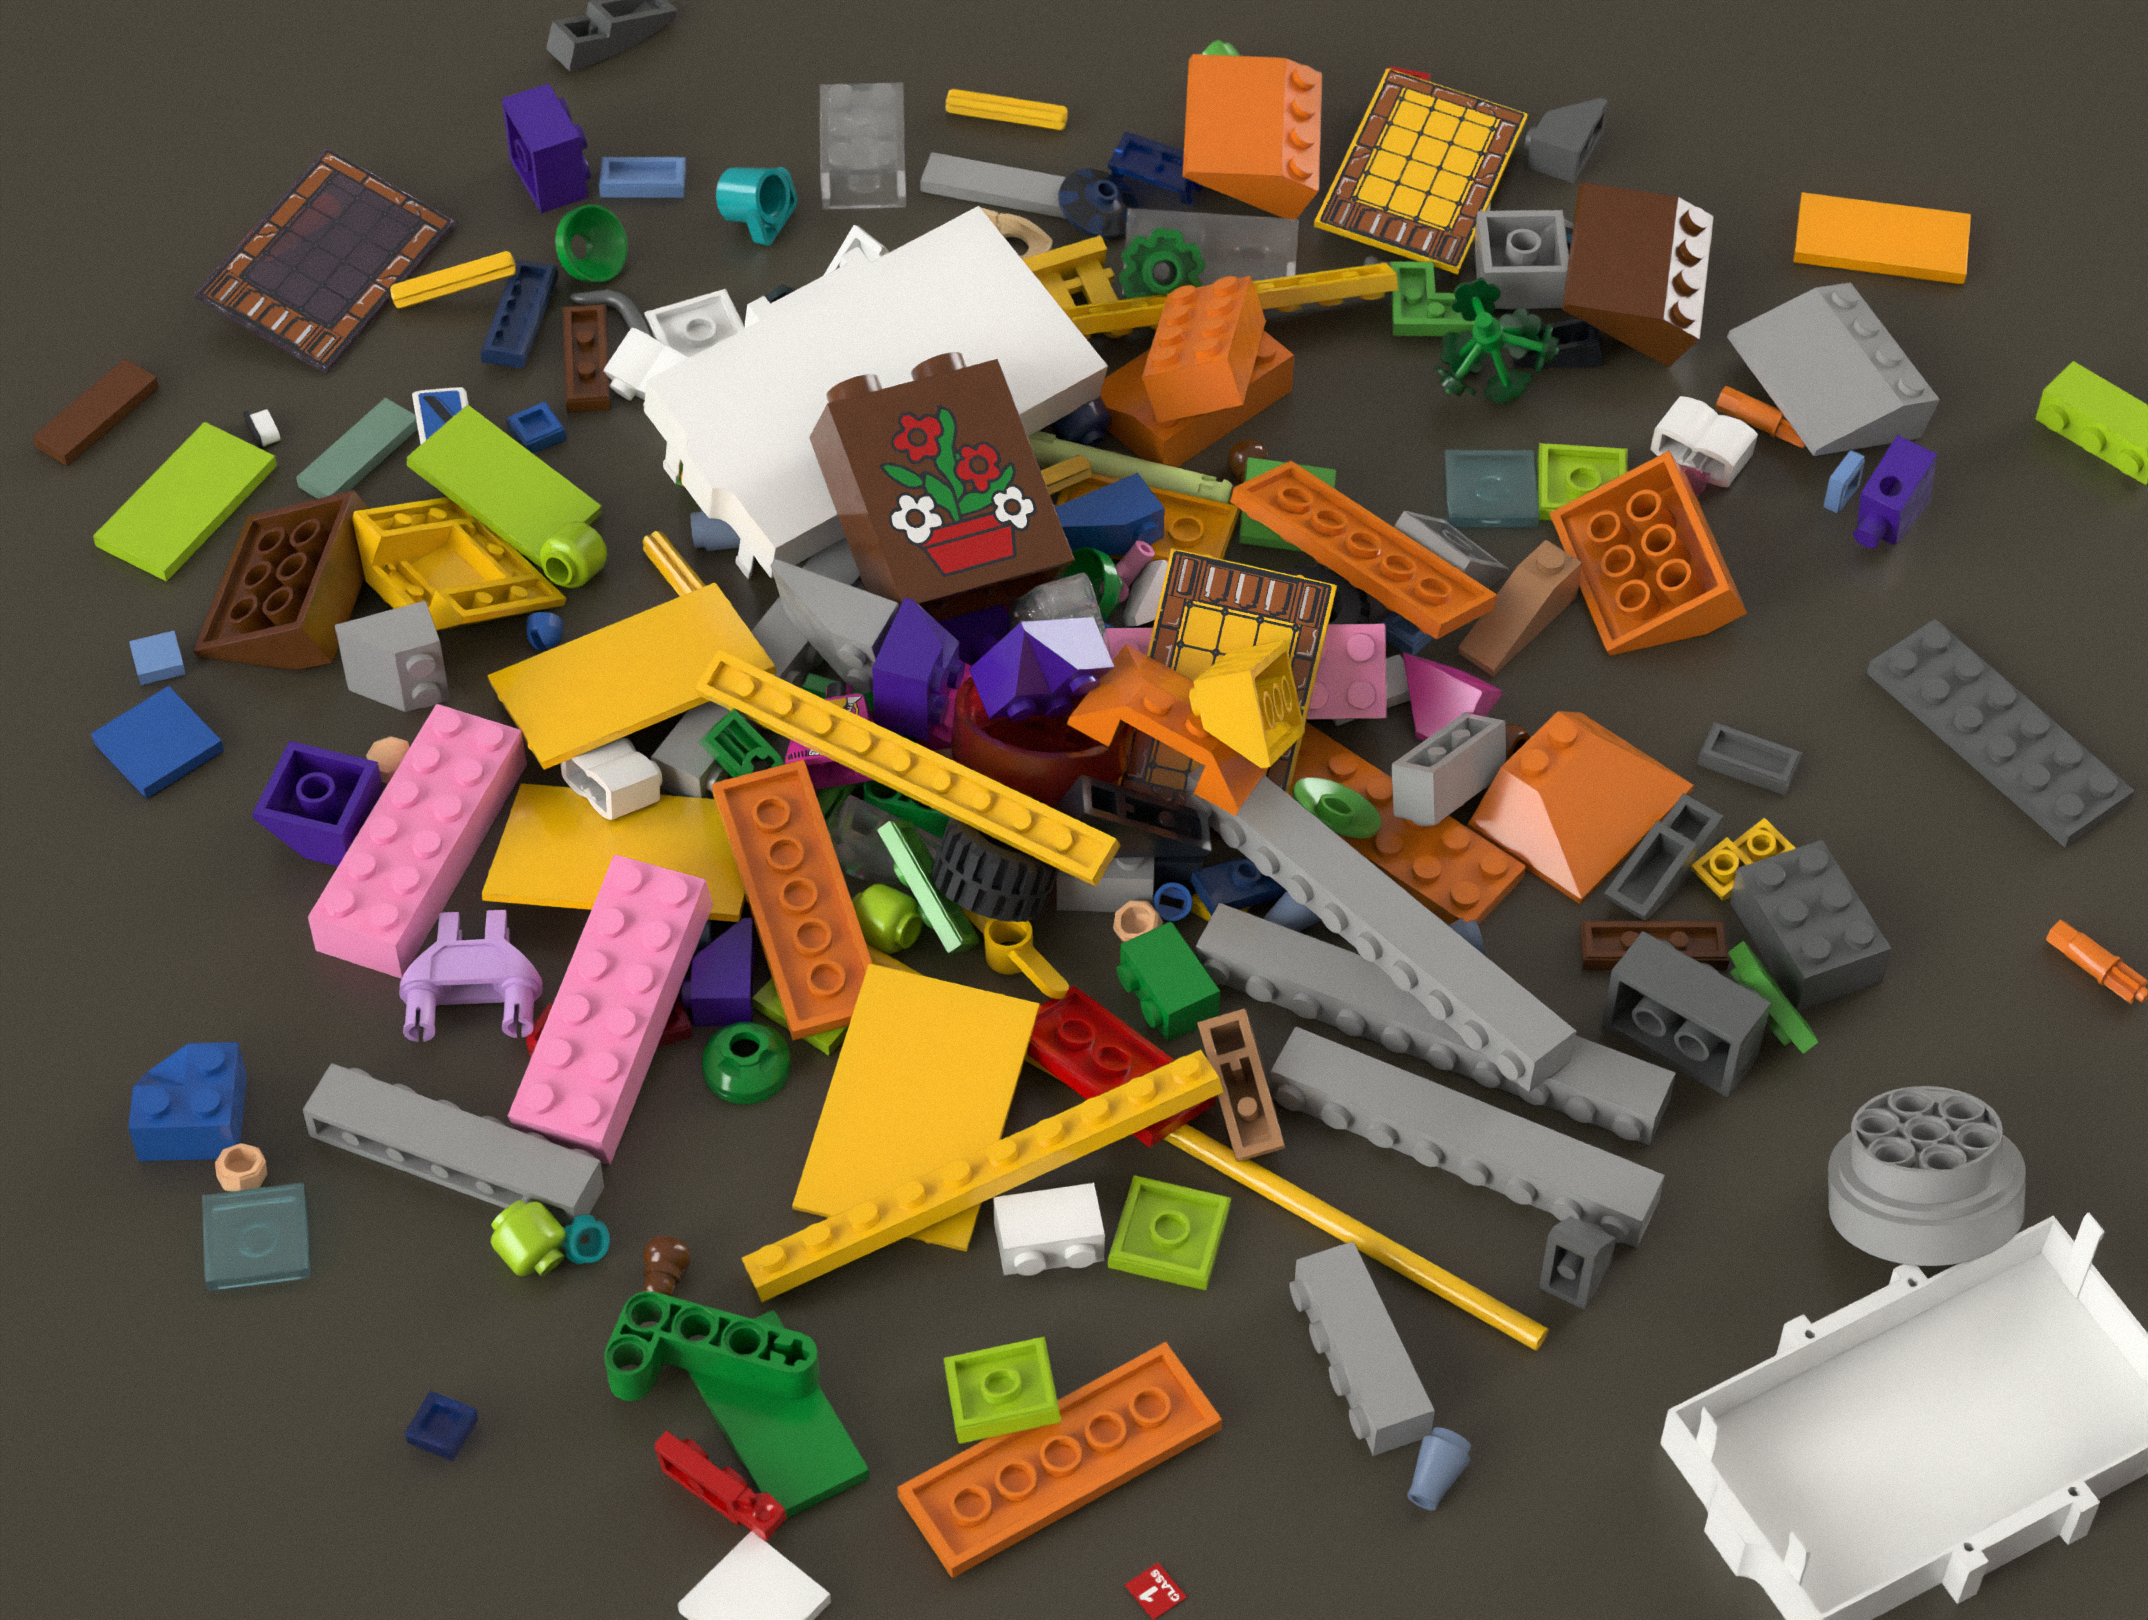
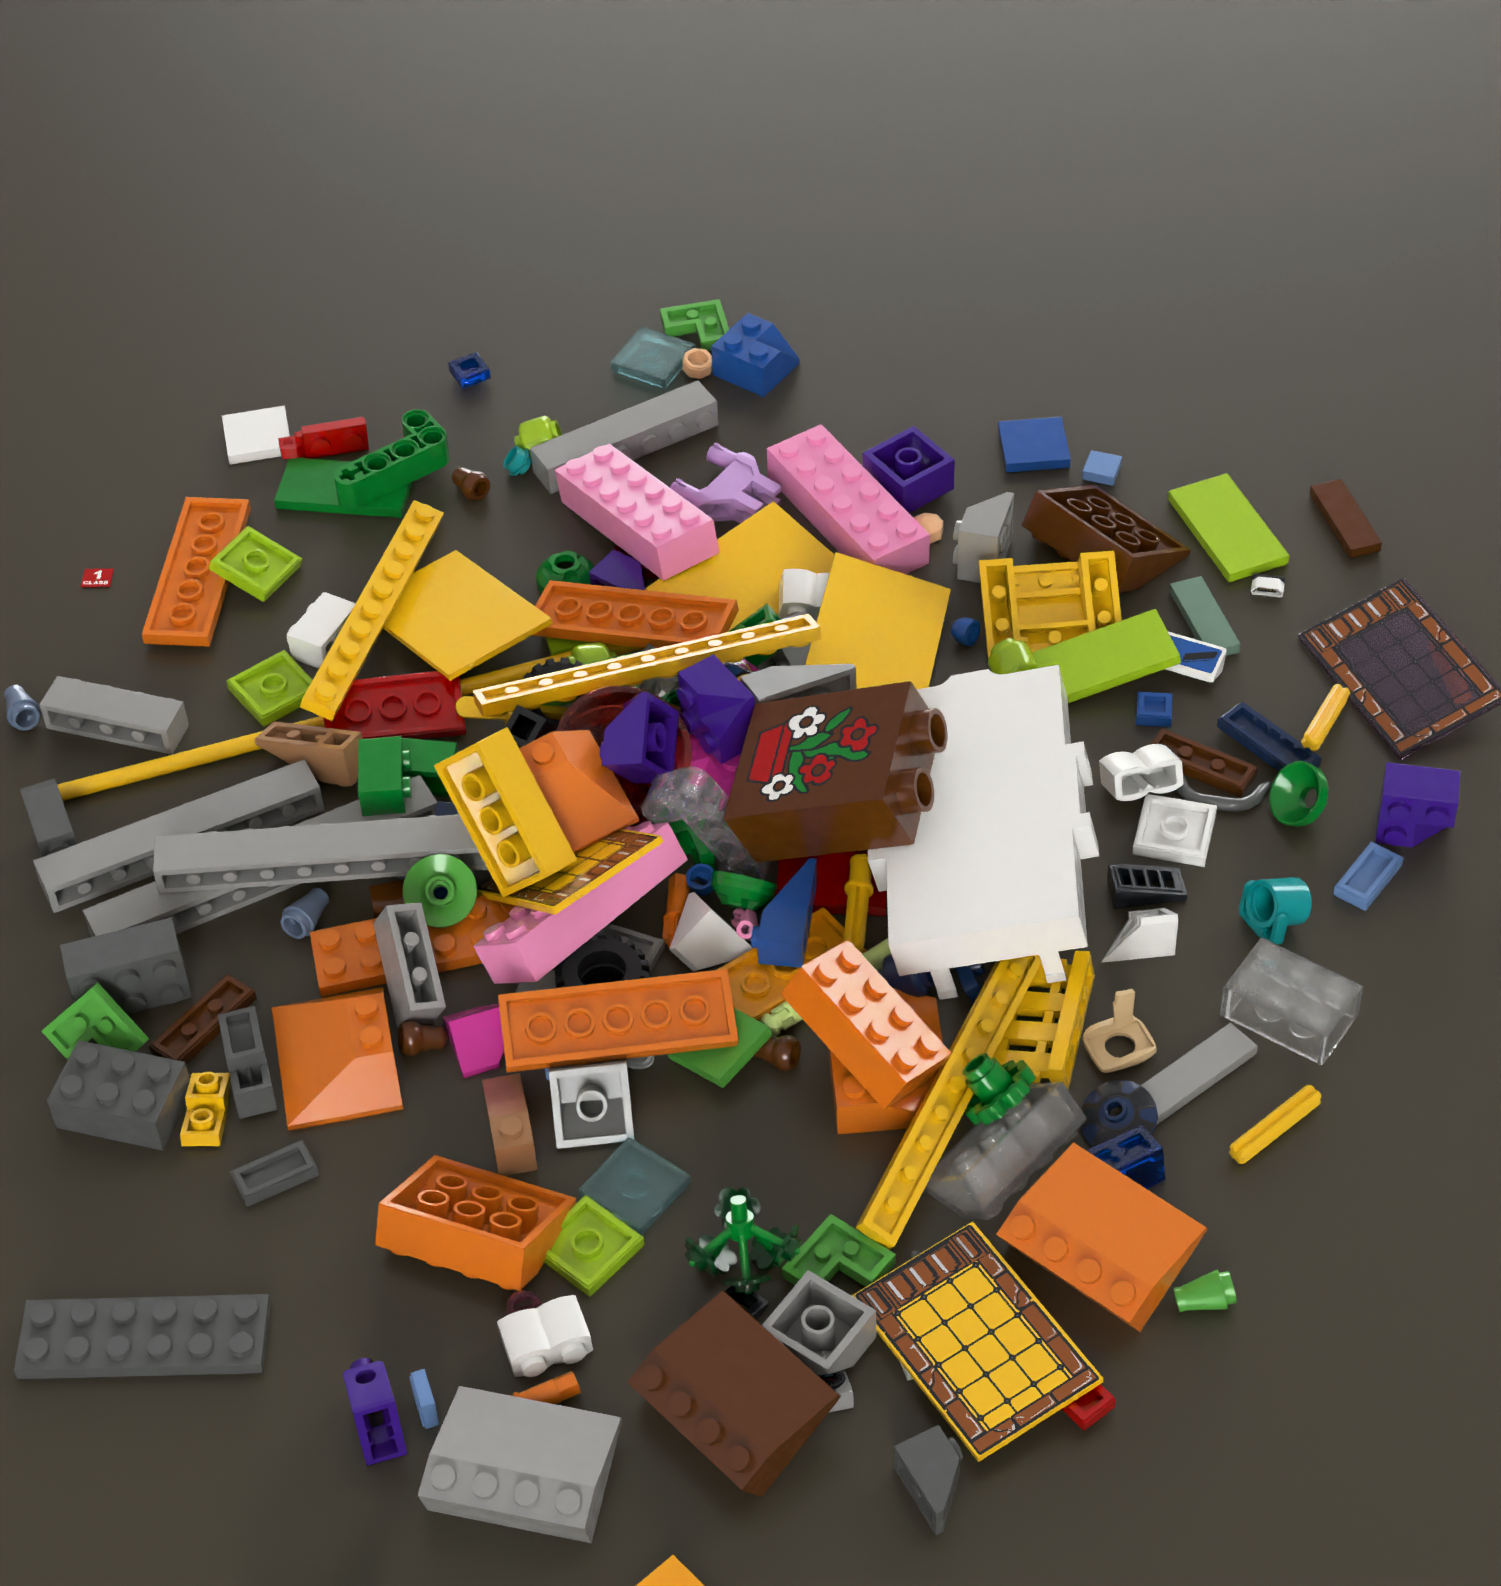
camera: 130 degrees right, 5 degrees down
(143, 1212) = (702, 318): none -> bright green plate
(1243, 949) = (383, 776): none -> green brick

